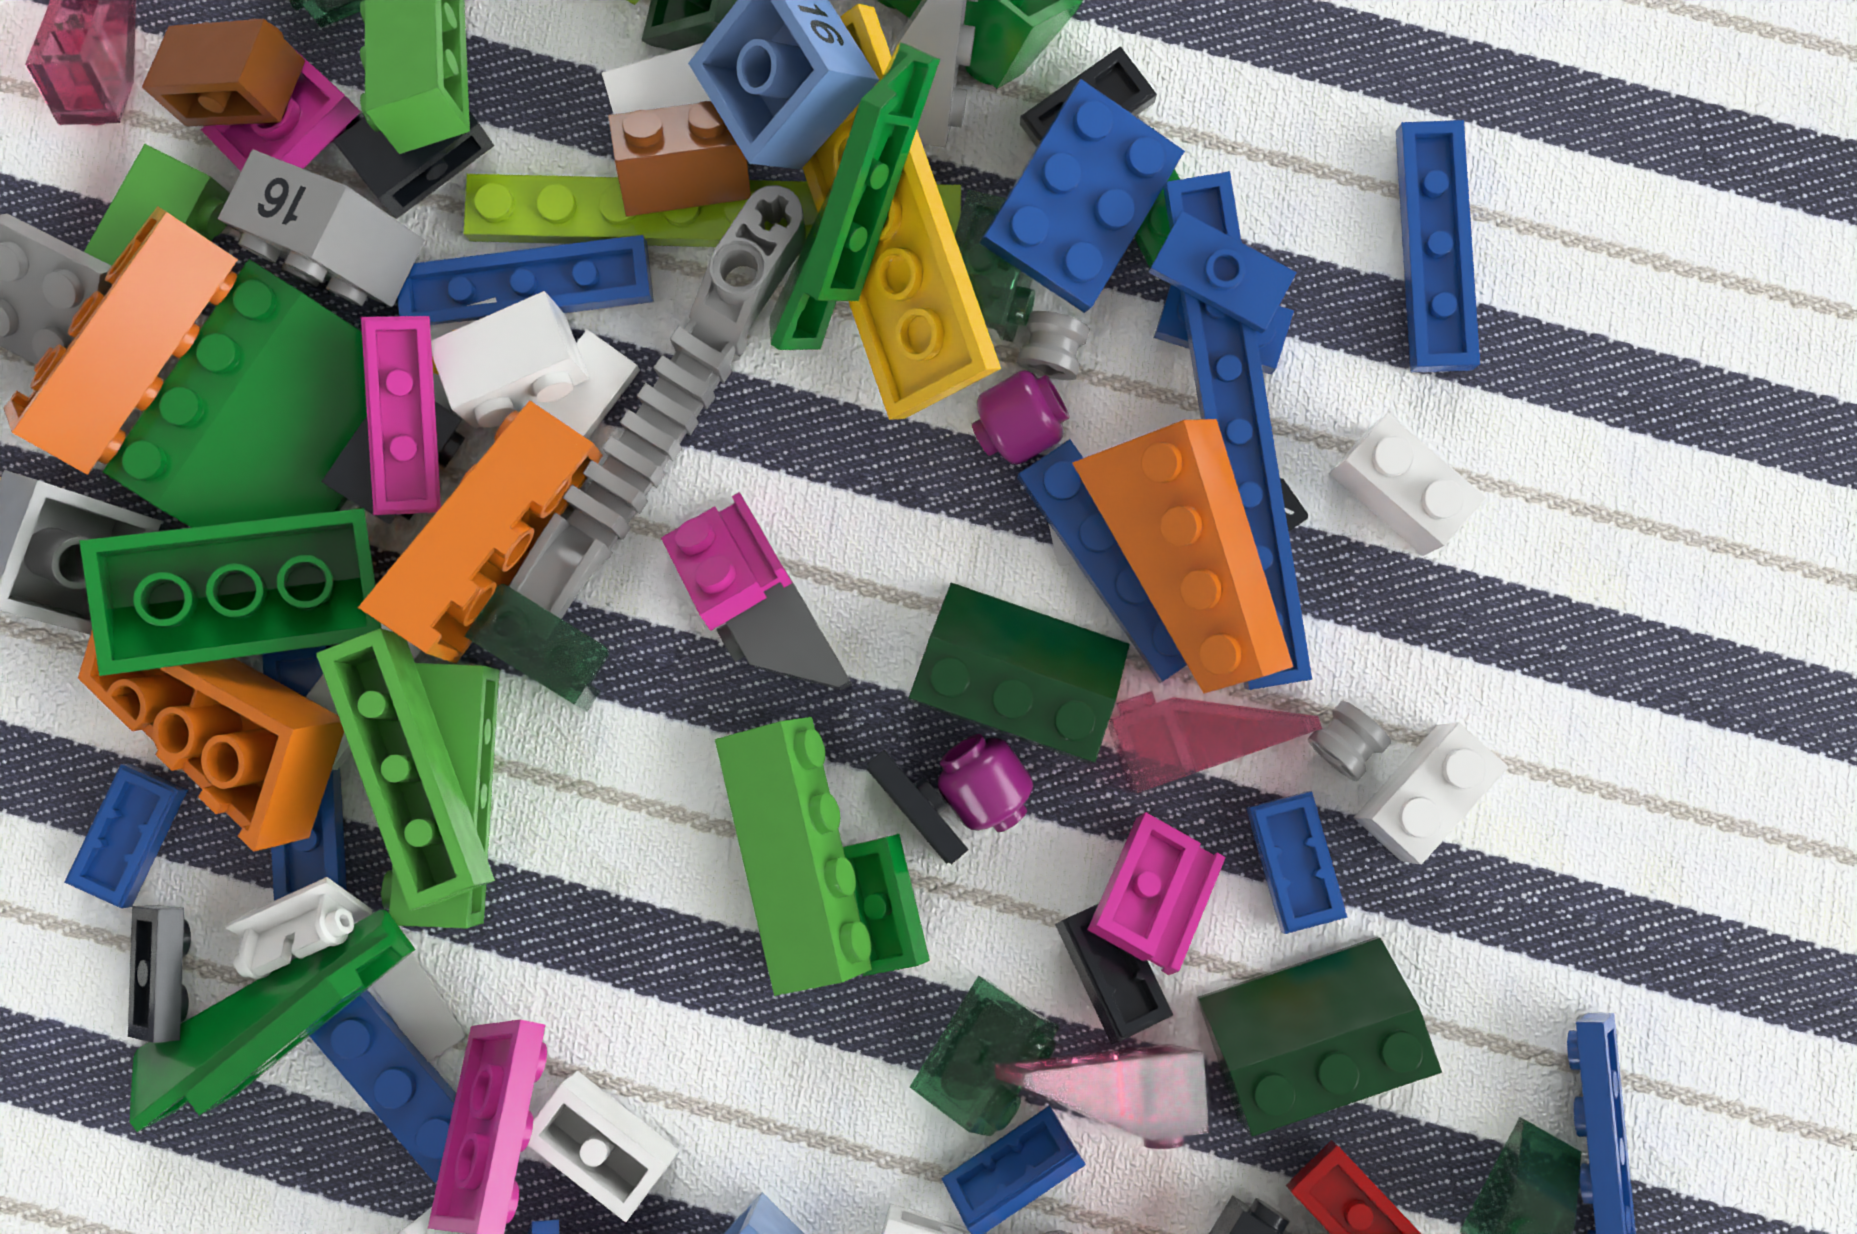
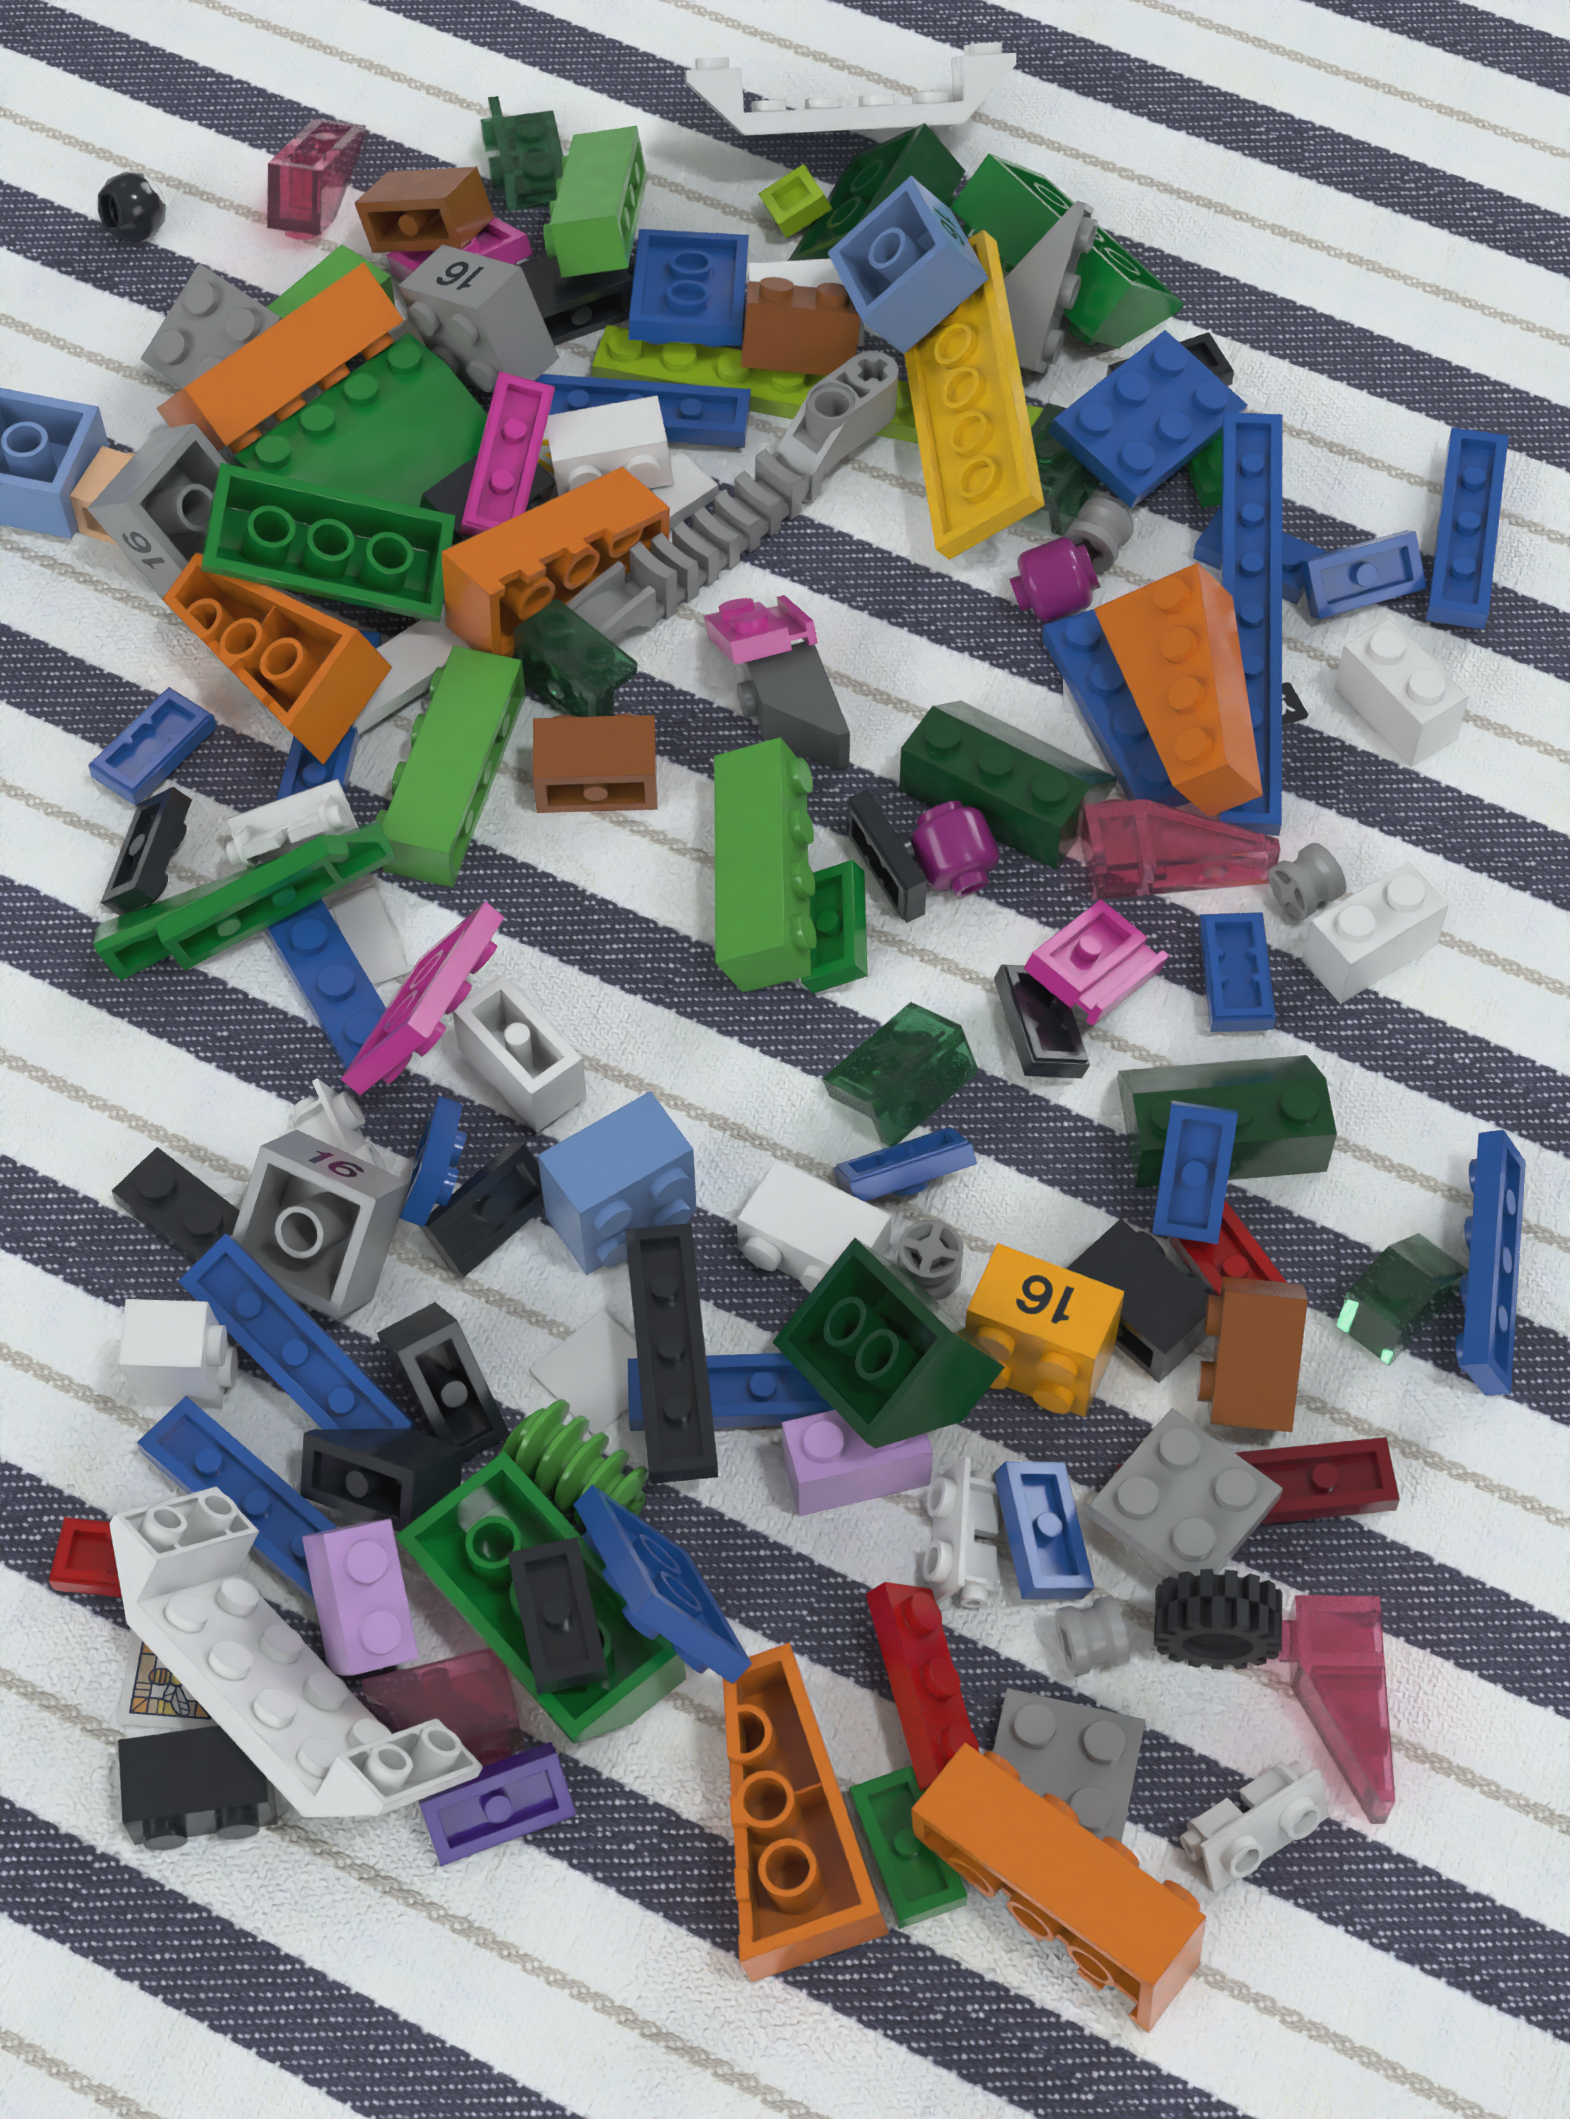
camera: 10 degrees right, 25 degrees down
(405, 768) = (439, 698): bright green brick -> none
(543, 112) = (689, 288): none -> blue plate
(590, 757) = (595, 763): none -> dark orange brick
(857, 204) = (943, 373): green wedge -> none
(1138, 1091) = (1018, 1098): clear pink slope -> none
(1222, 272) = (1259, 482): blue plate -> none
(1312, 1157) = (1194, 1172): none -> blue plate
(1340, 336) = (1363, 574): none -> plate

